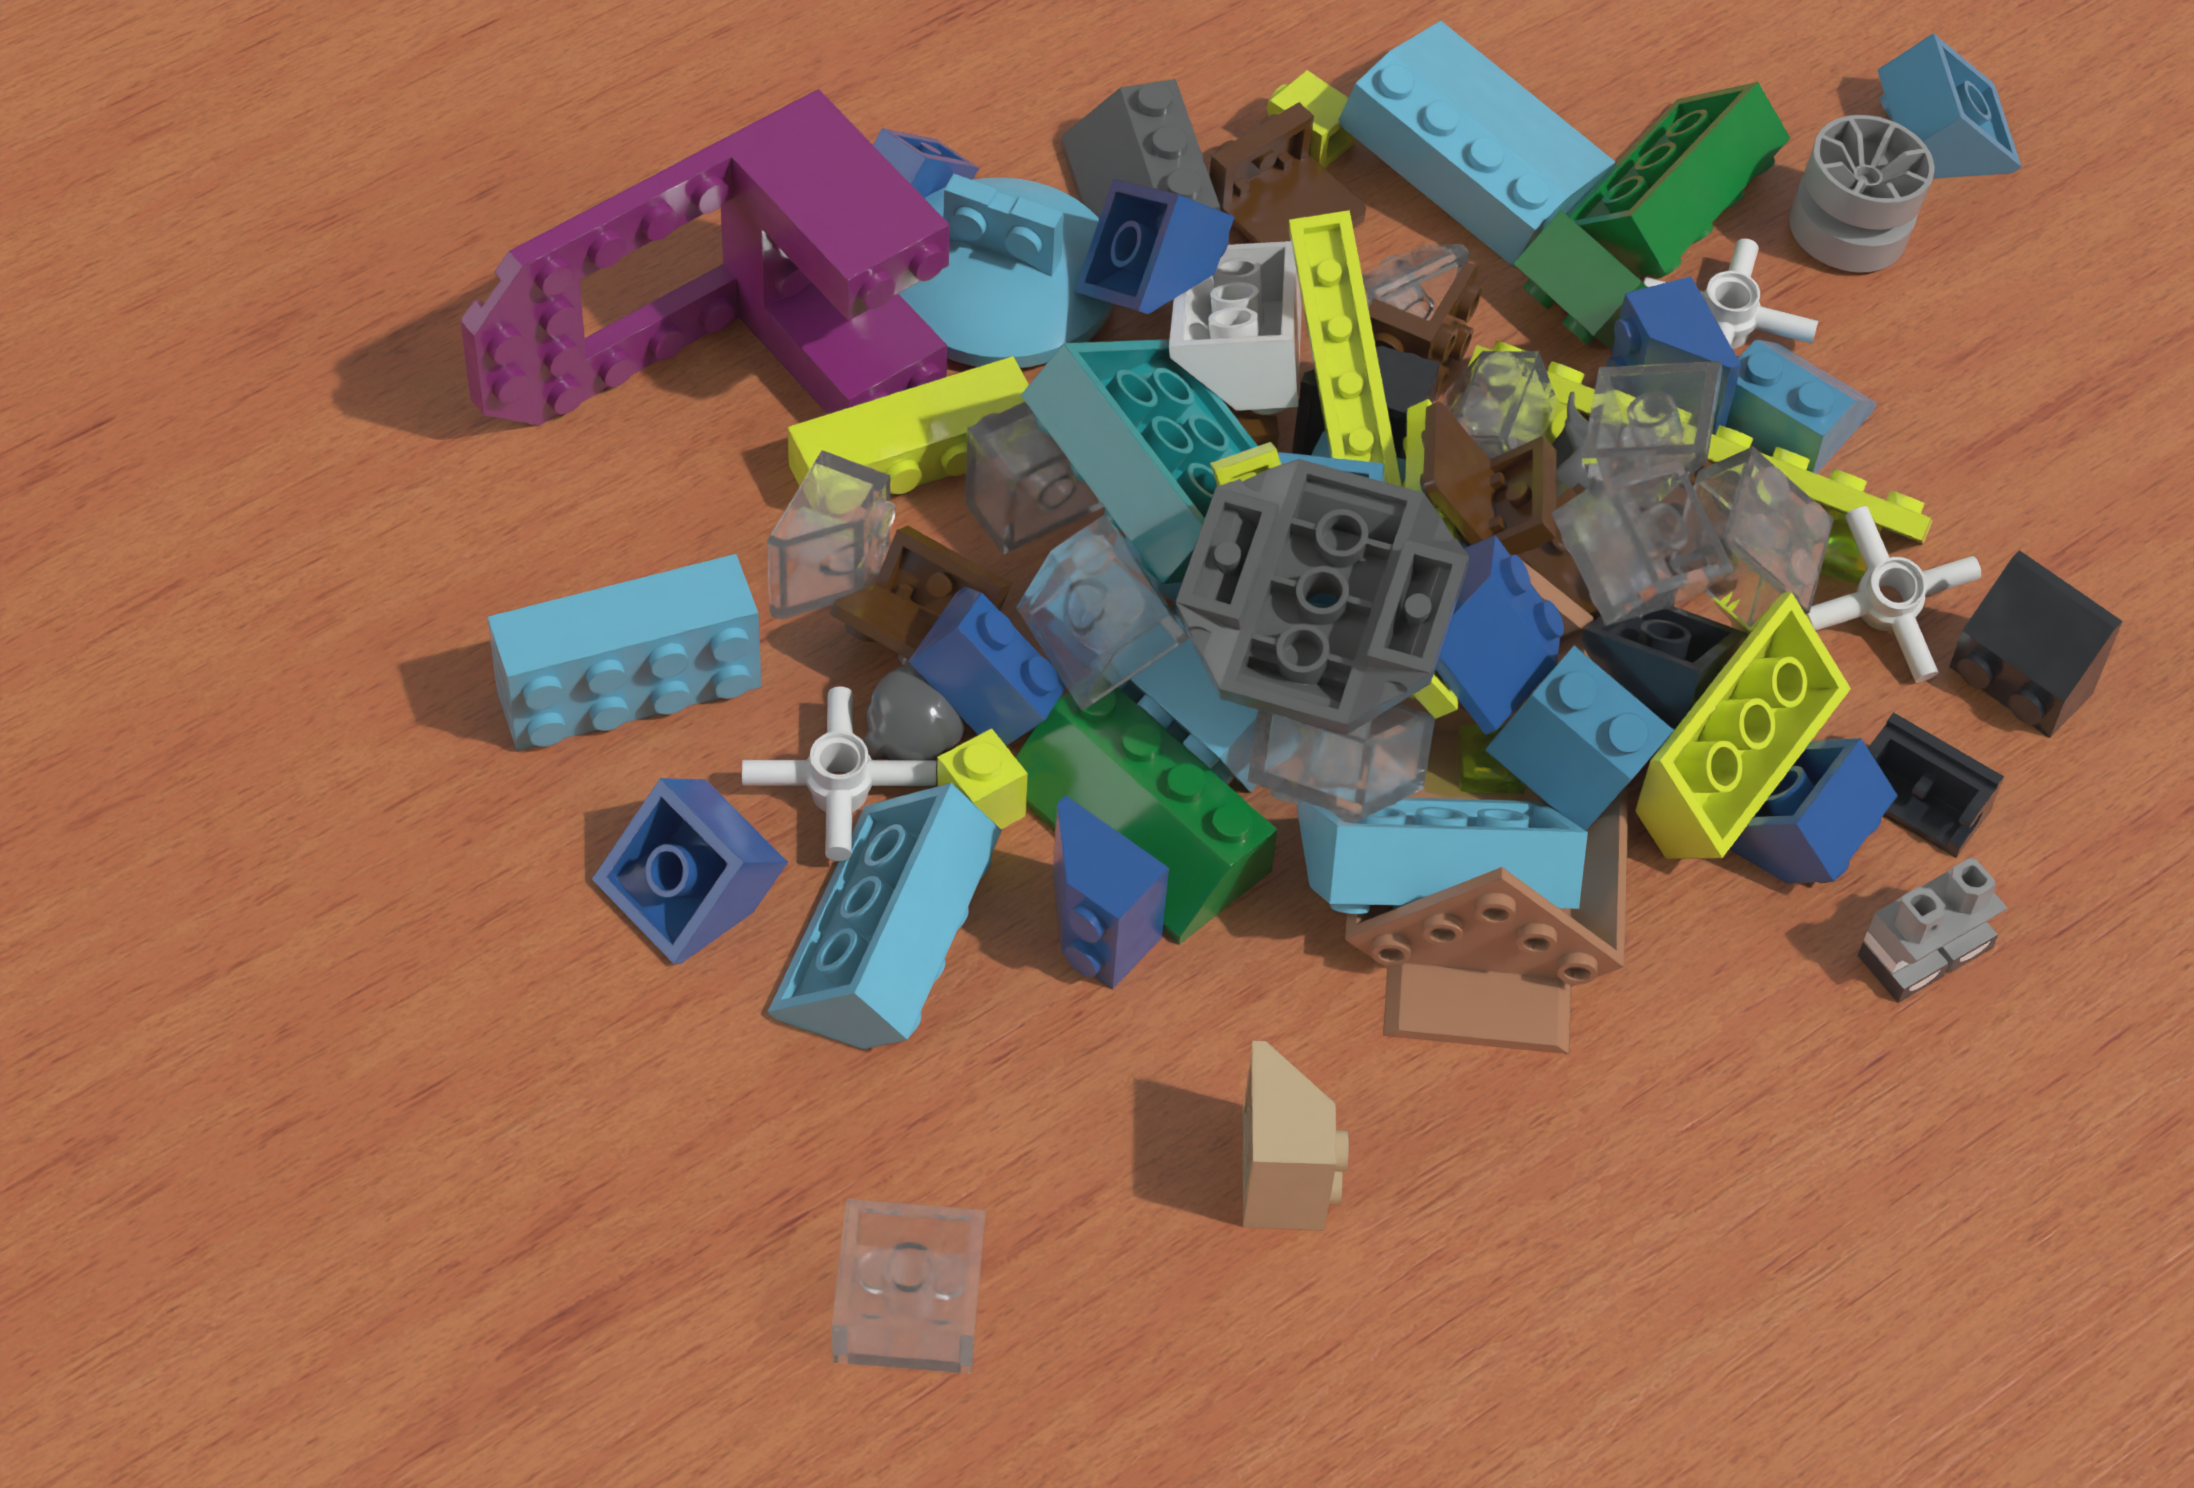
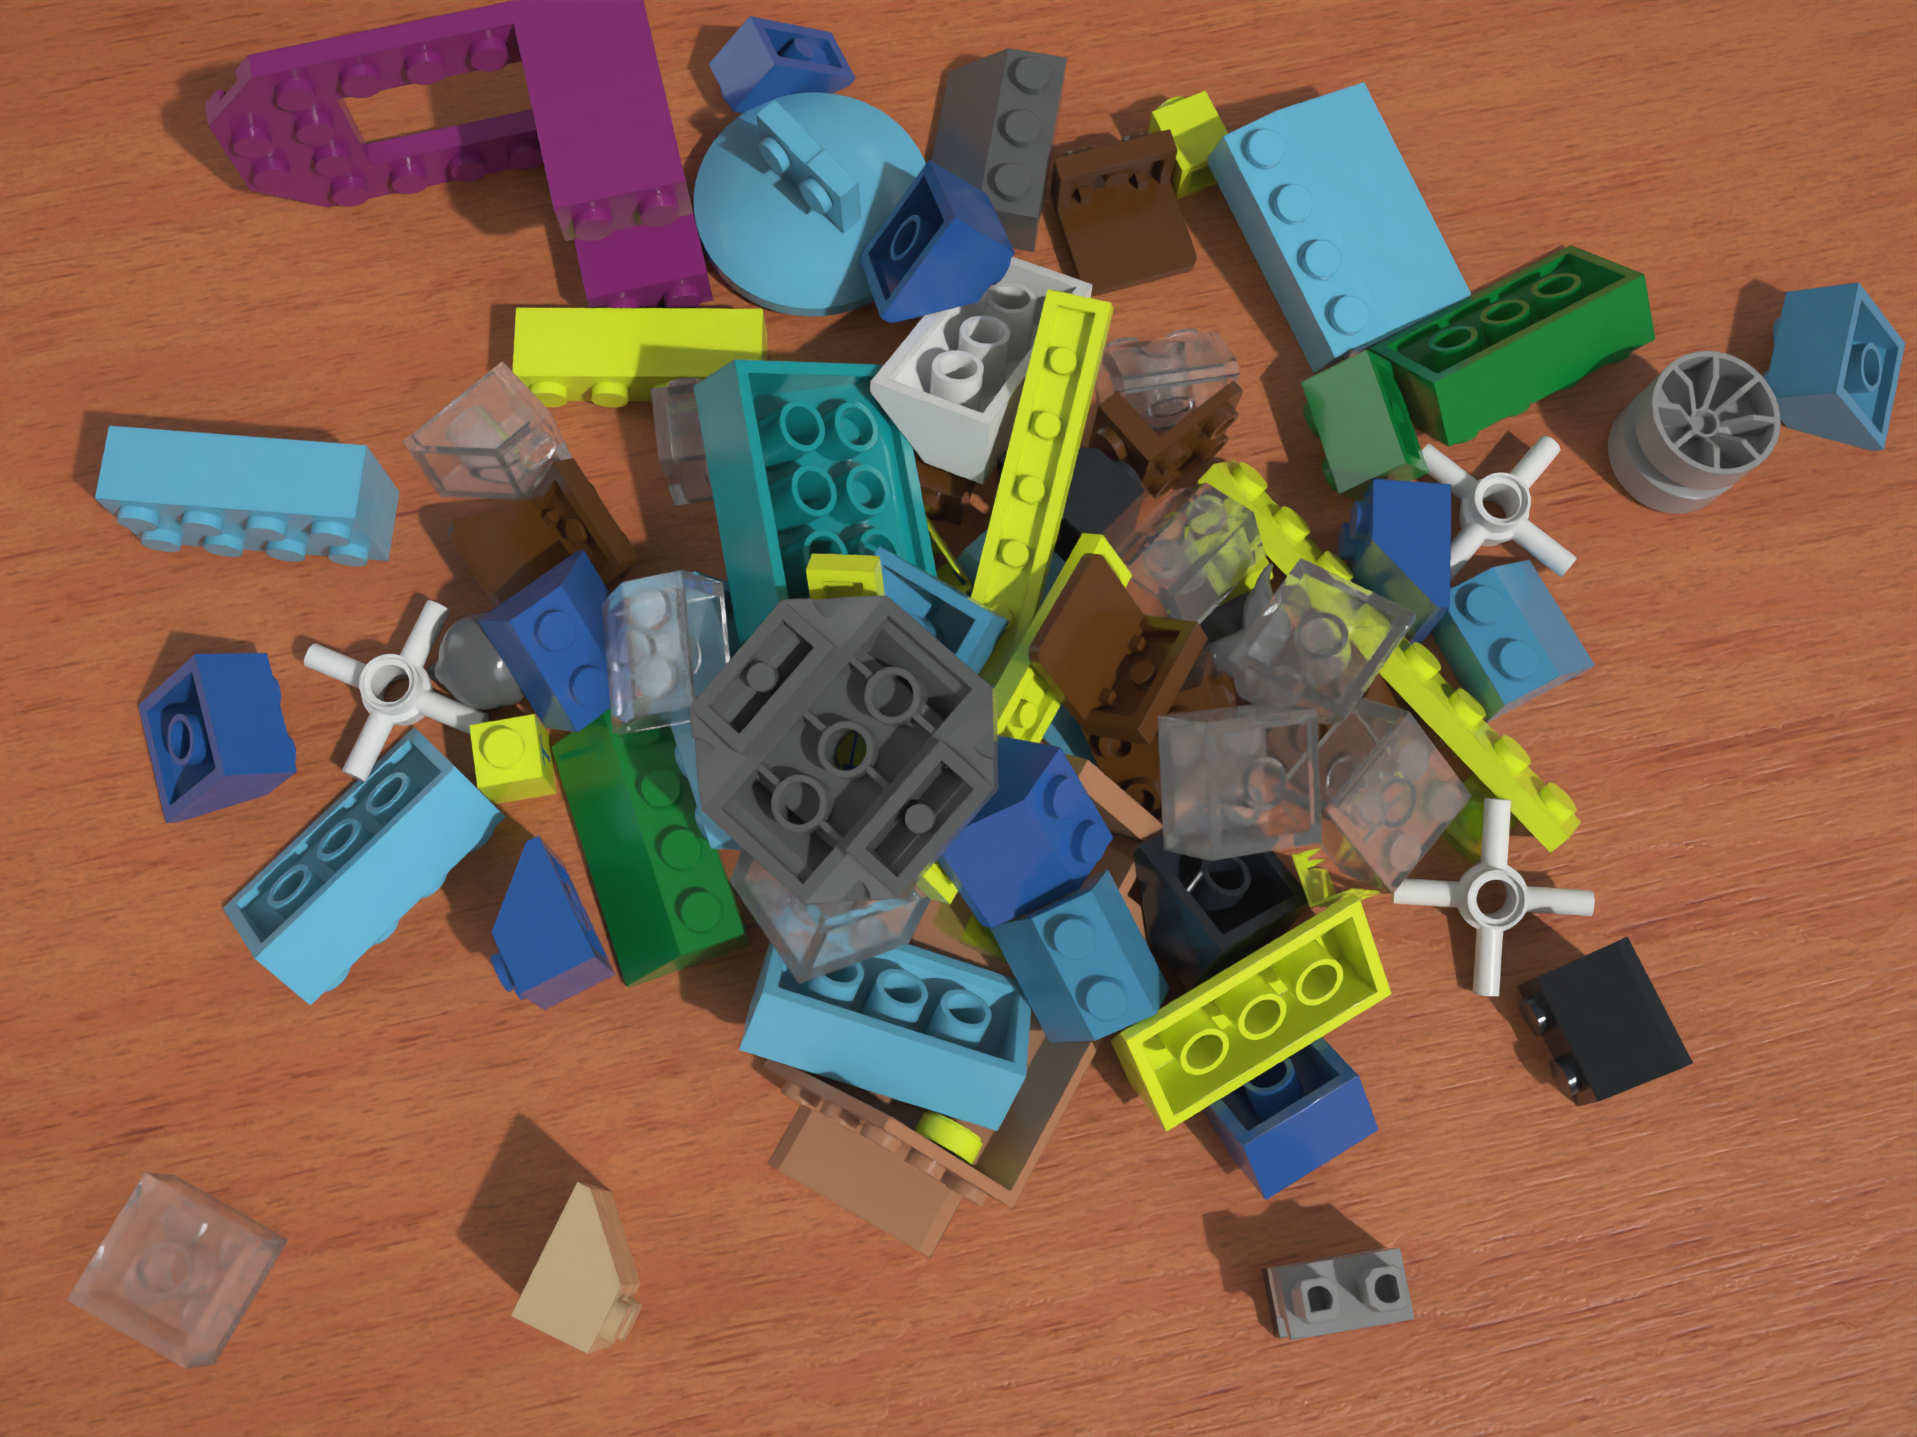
camera: 25 degrees right, 20 degrees up
(1937, 786) = (1420, 1124): black hinge -> none

